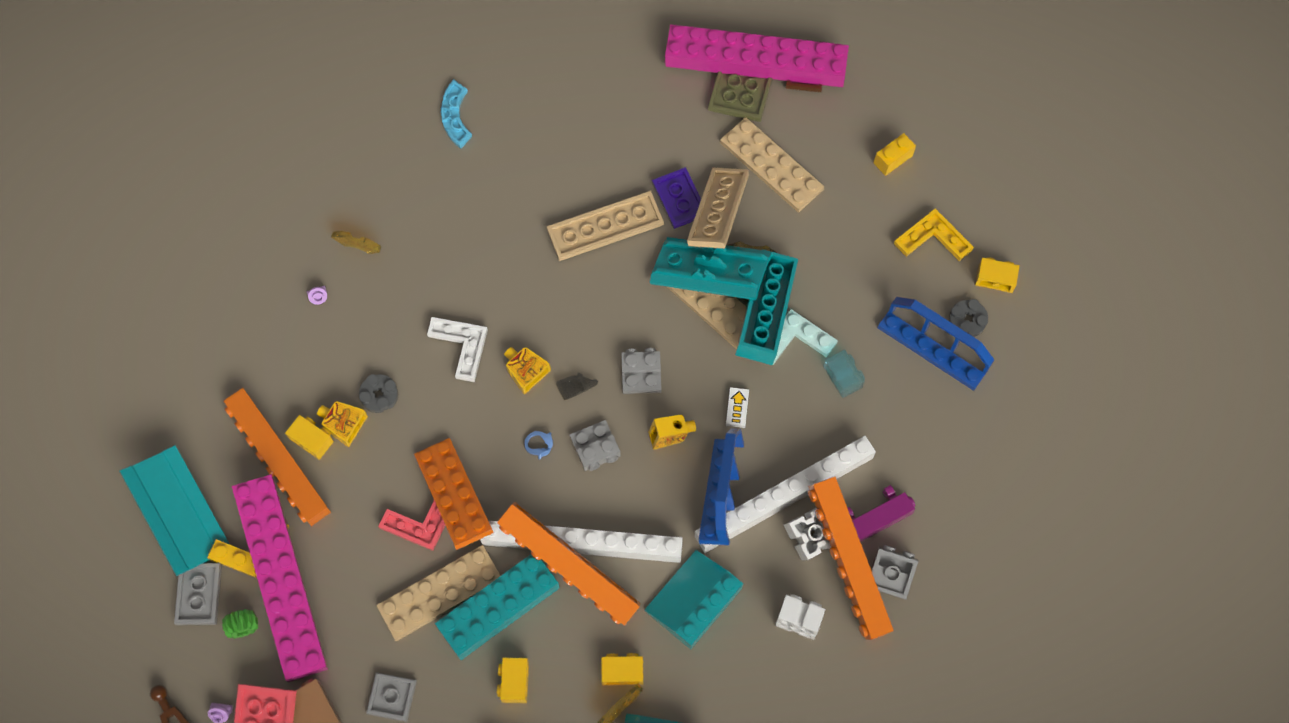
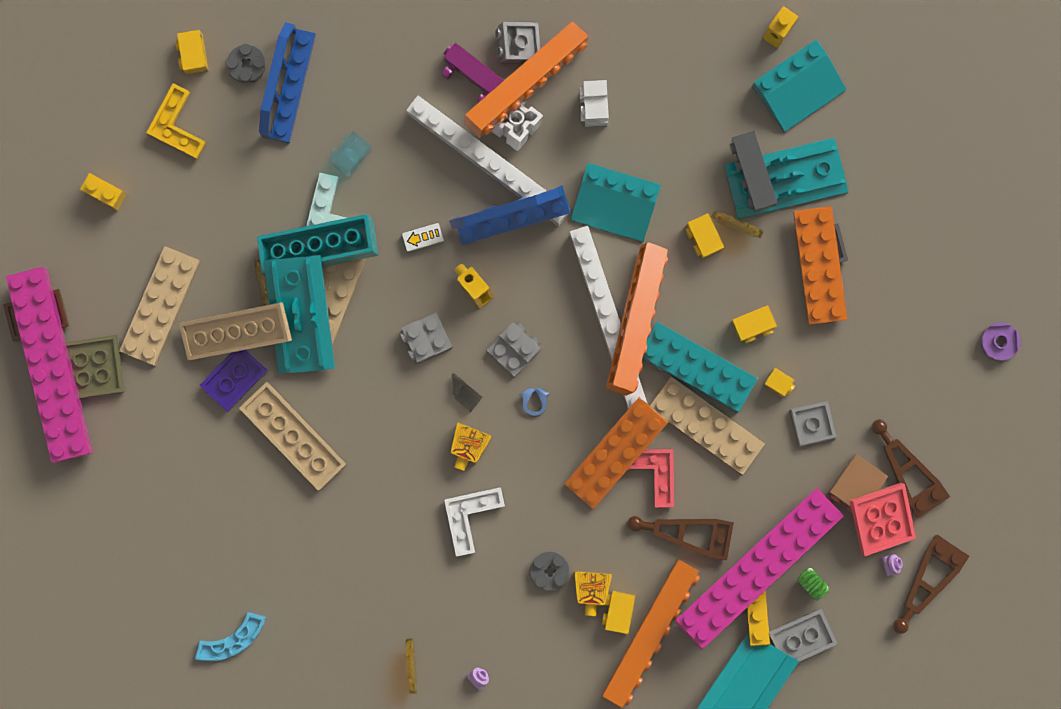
camera: 110 degrees left, 15 degrees up
(330, 558) = (719, 541): none -> reddish brown plate
(445, 679) = (779, 383): none -> yellow brick

